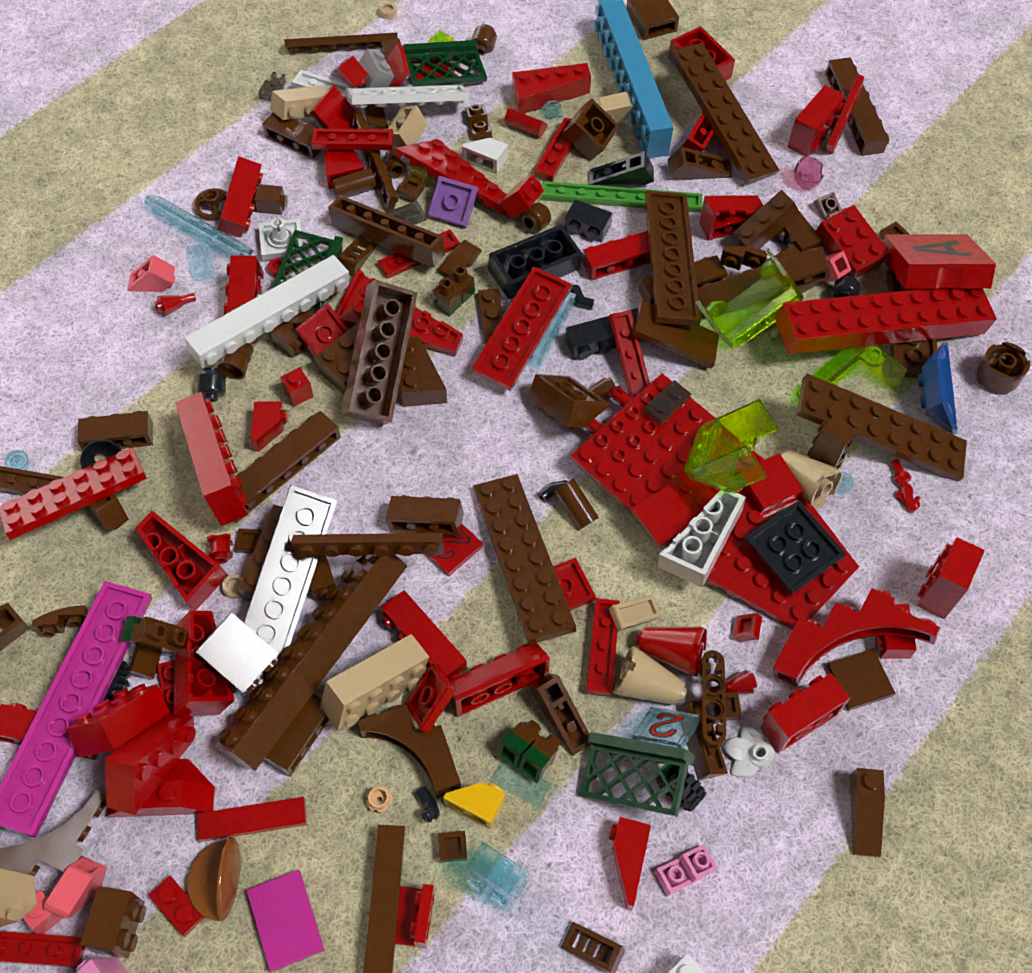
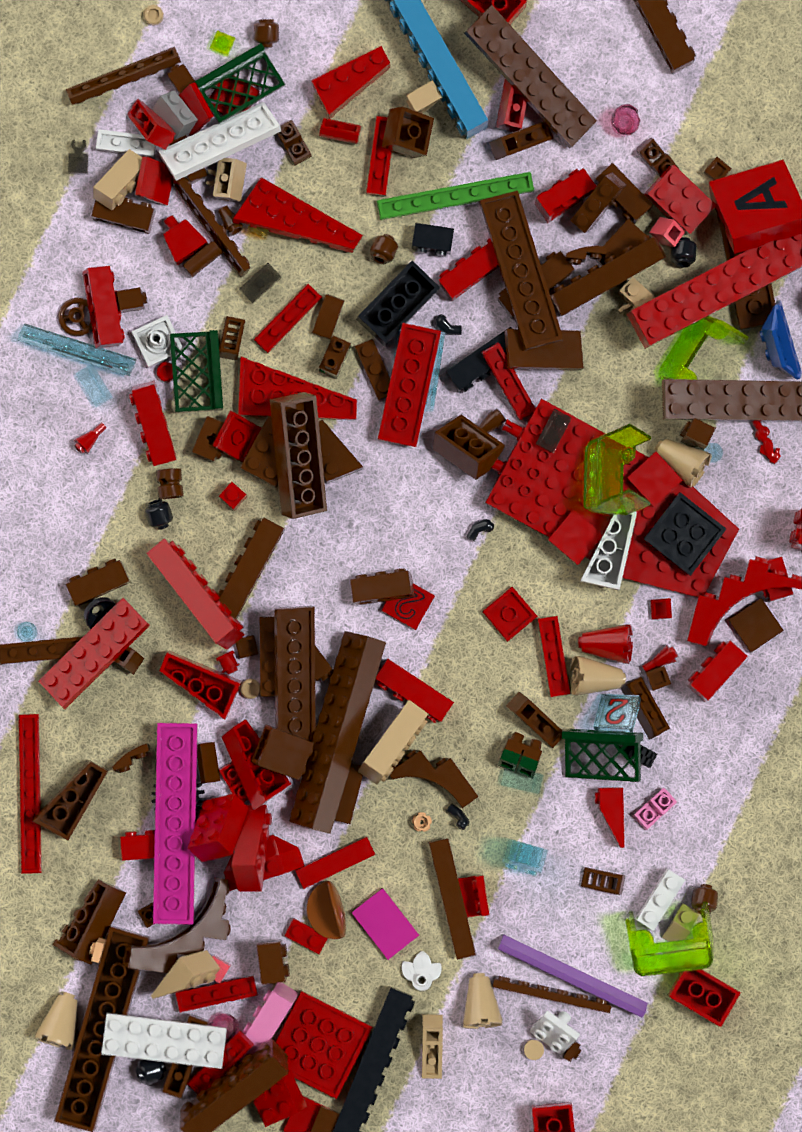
camera: 15 degrees left, 25 degrees up
(76, 887) = (236, 947): coral slope -> none
(152, 276) = (59, 419): coral slope -> none
(153, 634) = (213, 754): reddish brown hips -> none
(267, 311) = (186, 437): white brick -> none
(267, 423) = (221, 537): red slope -> none
(353, 139) = (187, 216): red plate -> none
(368, 544) = (347, 645): reddish brown plate -> none
(387, 231) = (254, 312): reddish brown brick -> none
(410, 189) = (256, 247): reddish brown plate -> none
(430, 697) = (437, 741): red tile -> none
(452, 201) = (302, 255): medium lavender tile -> none
(452, 846) = (485, 840): reddish brown plate -> none
(477, 802) = (494, 804): yellow slope -> none
(486, 154) = (315, 184): white slope -> none
(498, 678) = (480, 707): red slope -> none
(522, 196) = (366, 234): red brick -> none
(524, 560) = (471, 600): reddish brown plate -> none
(552, 110) = (366, 106): clear light blue plate -> none
(576, 504) = (501, 540): reddish brown brick -> none
(626, 172) = (449, 171): black slope -> none
(635, 612) = (571, 622): tan tile -> none
(709, 698) = (644, 678): reddish brown beam -> none
(745, 751) = (679, 708): white plate -> none
(753, 308) = (601, 310): clear neon green windscreen -> none
(816, 121) = (622, 56): red brick -> none
(845, 114) = (648, 42): red tile -> none
(867, 811) = (776, 730): reddish brown slope -> none

